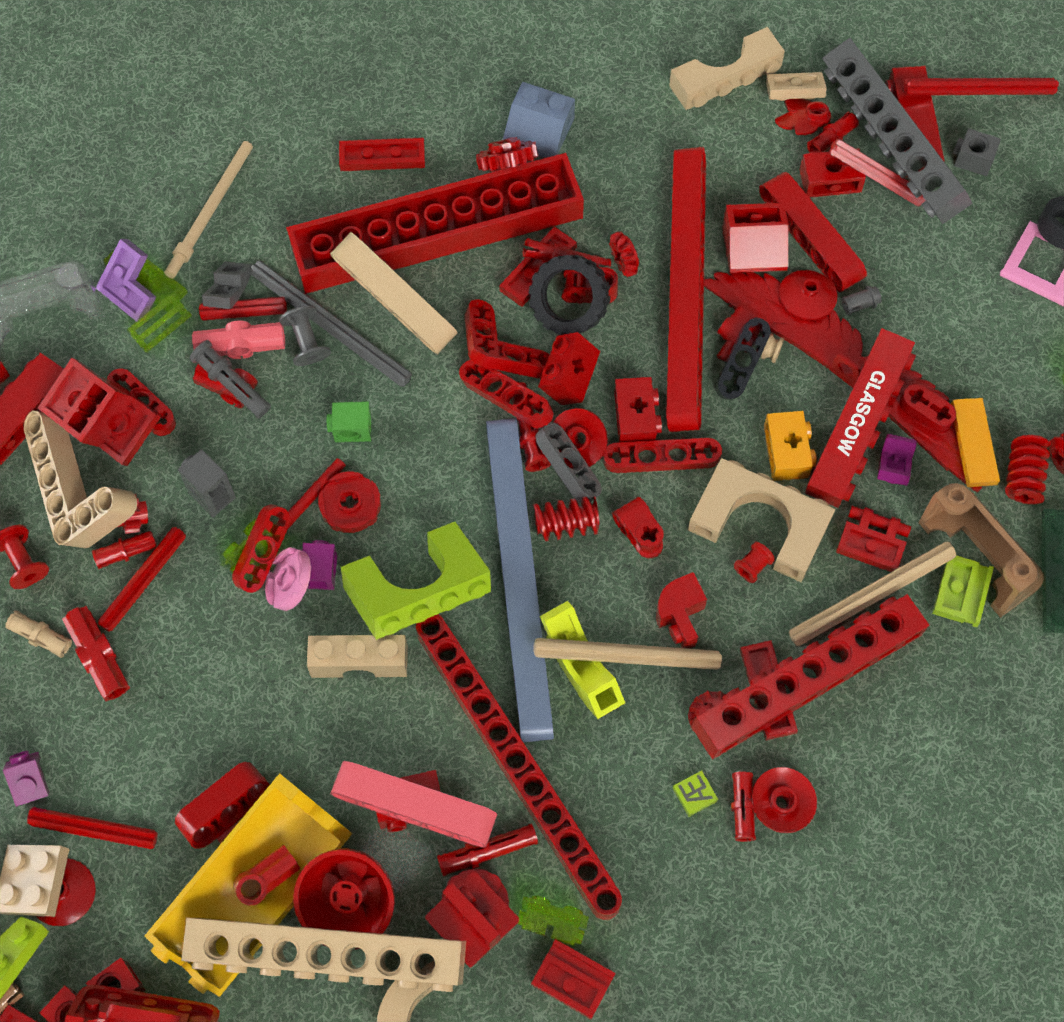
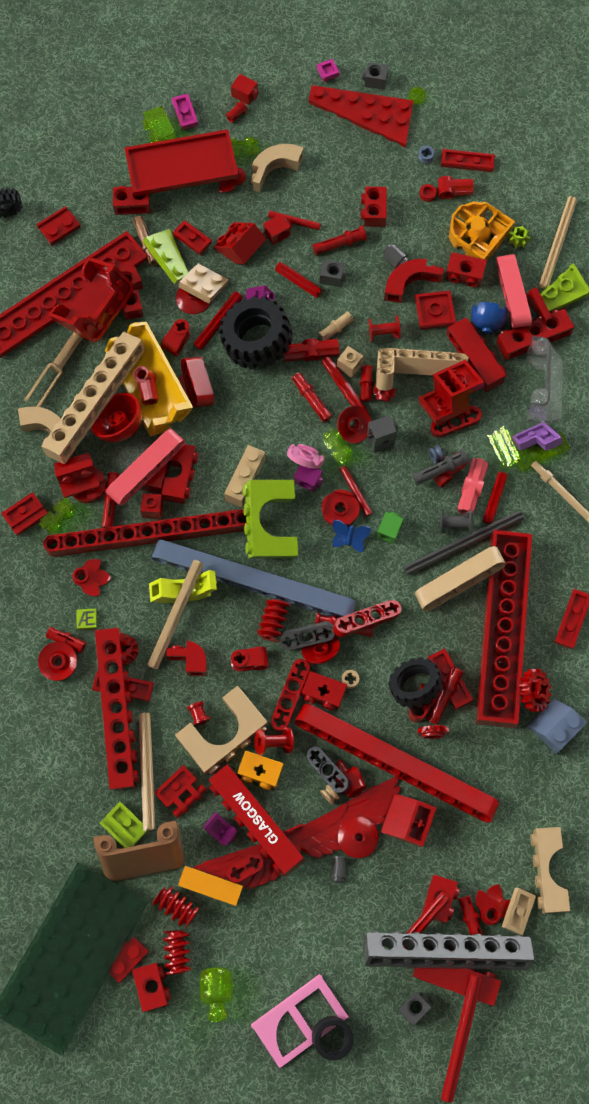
camera: 115 degrees right, 5 degrees up
(58, 737) = (250, 314): none -> black tyre
(97, 583) = (350, 362): none -> tan brick
(159, 878) = (175, 339): none -> red piece
(174, 626) = (307, 391): none -> red pin
(203, 534) = (360, 420): none -> red dish
(206, 405) = (436, 454): none -> sand blue bush
(228, 285) = (512, 494): dark grey slope -> none
(243, 565) = (338, 450): red beam -> none
(388, 471) = (350, 537): none -> blue piece
(419, 748) = (178, 488): none -> red arch
(470, 775) = (152, 506): none -> red brick
(494, 355) = (397, 625): red beam -> none
(569, 368) = (367, 662): red brick -> none
(603, 380) = (354, 675): none -> tan bush
(626, 815) = (94, 577): none -> red plate
(753, 449) = (285, 740): none -> red piece
(814, 232) = (401, 863): red beam -> none

